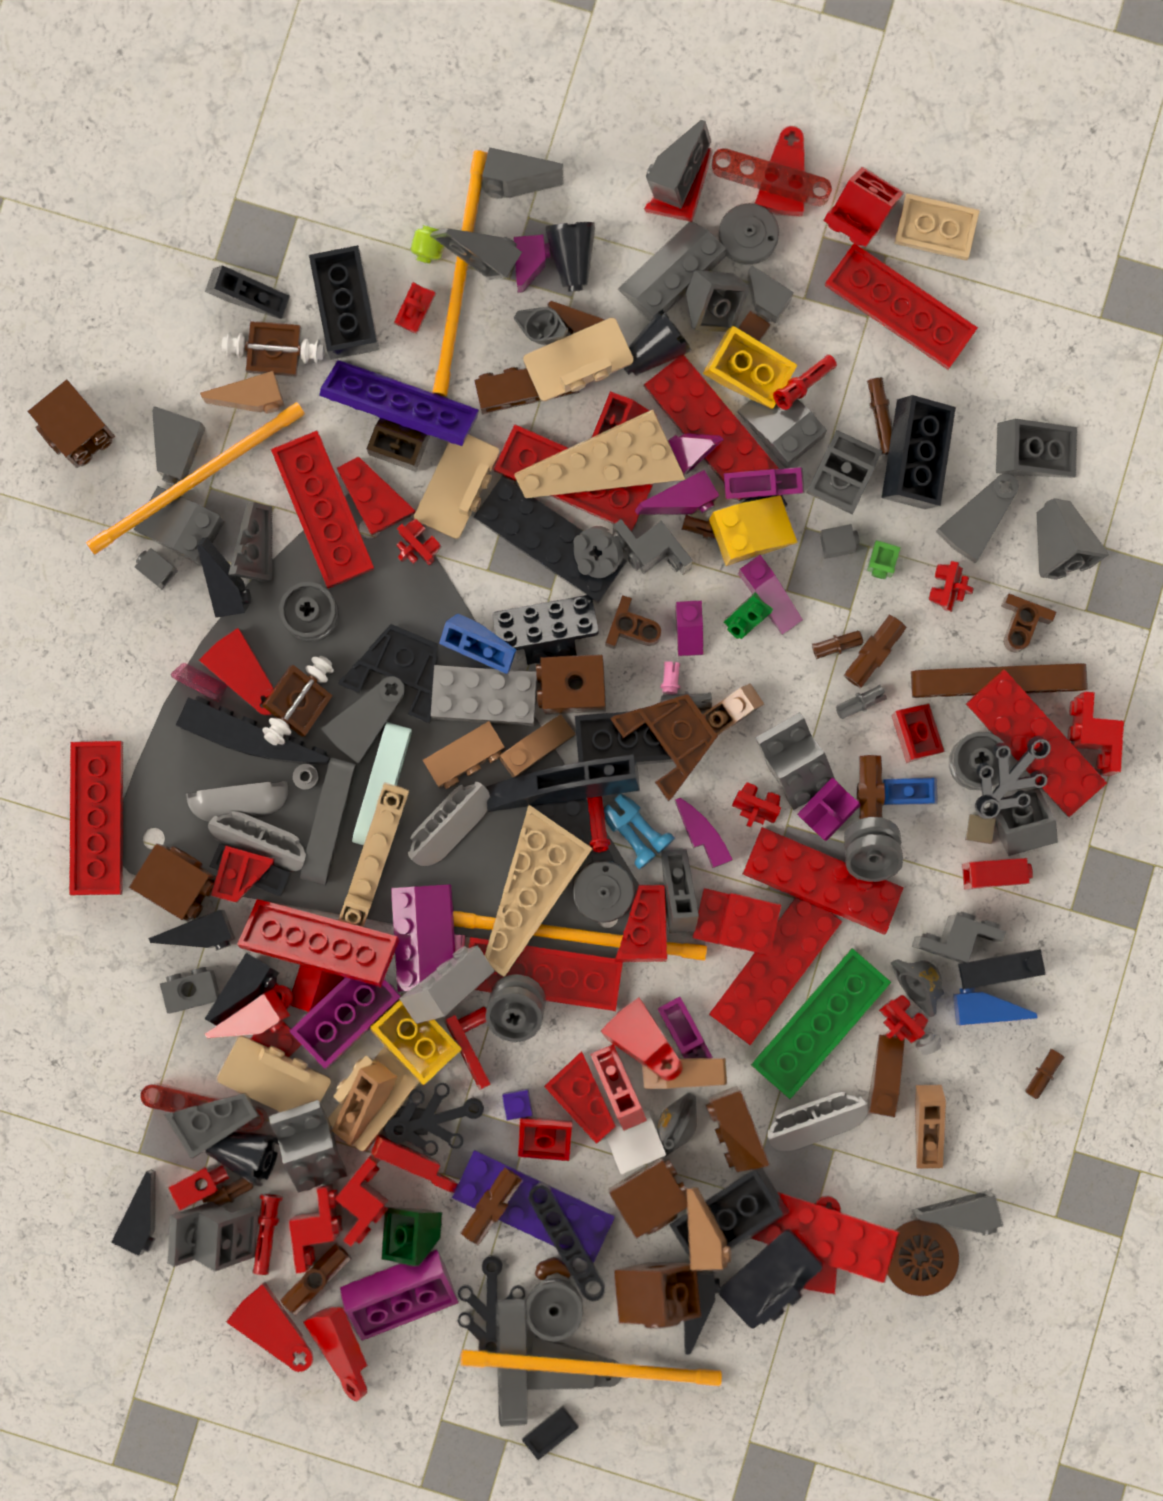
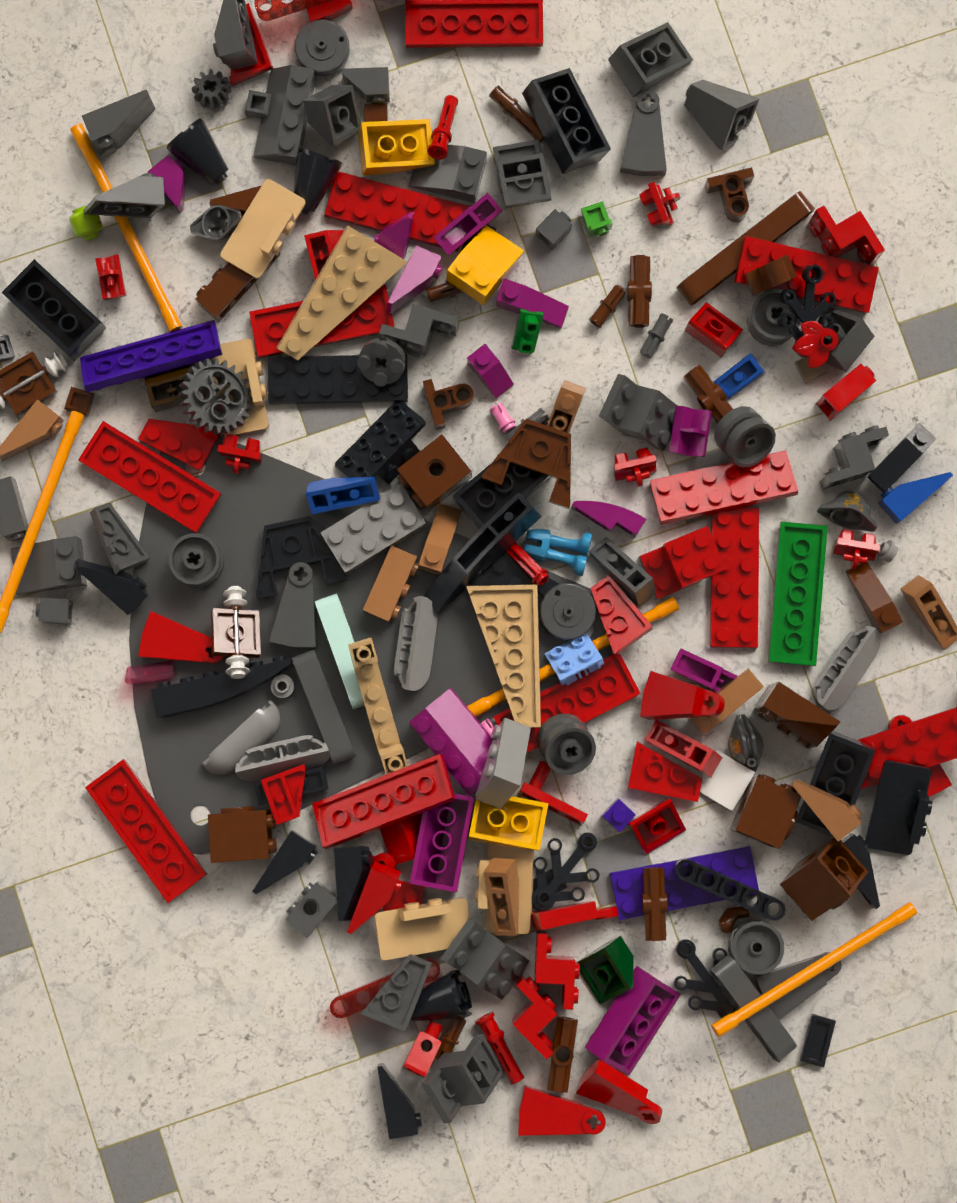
camera: 40 degrees left, 0 degrees up
(309, 398) = (79, 401): none -> reddish brown tile
(426, 456) = (201, 379): none -> dark grey gear
(578, 936) = (573, 658): none -> light blue hinge
(632, 198) = (216, 82): none -> dark grey gear
(655, 244) = (257, 104): none -> dark grey slope
(993, 809) = (812, 343): none -> red plate
(1000, 721) = (770, 275): none -> reddish brown tile

